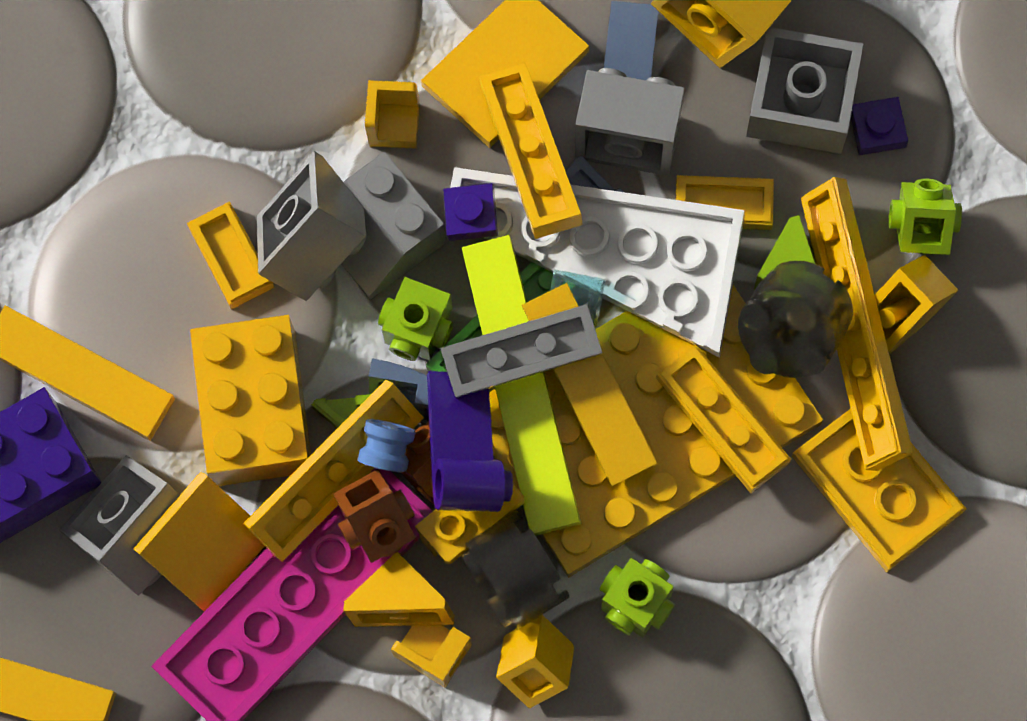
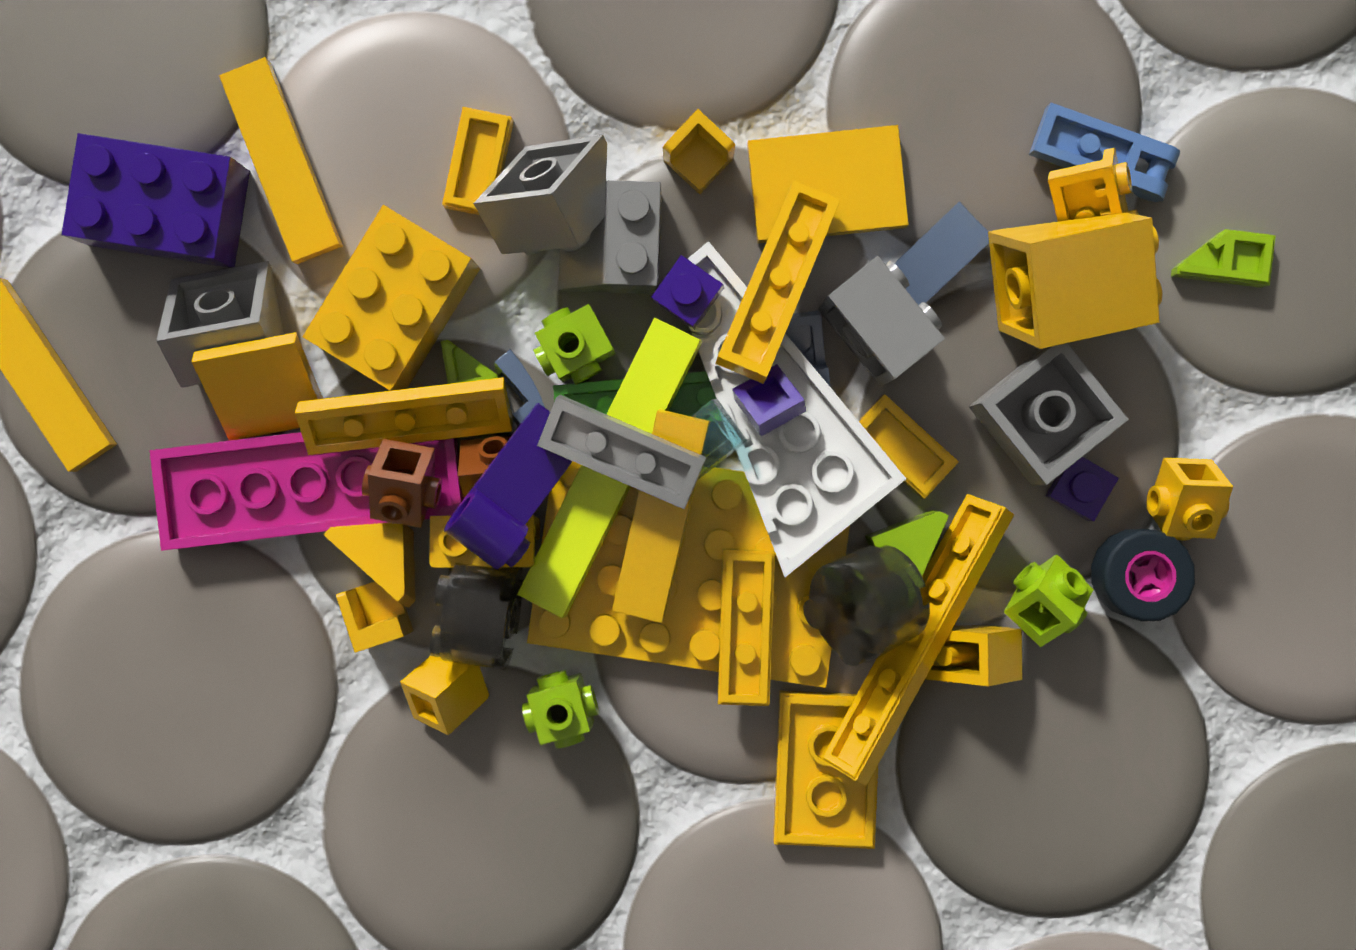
camera: 40 degrees right, 15 degrees up
(386, 445) = (455, 435): medium blue wheel -> none
(599, 234) = (769, 403): none -> plate
(959, 68) = (1189, 498): none -> yellow brick
(984, 132) = (1161, 581): none -> black wheel

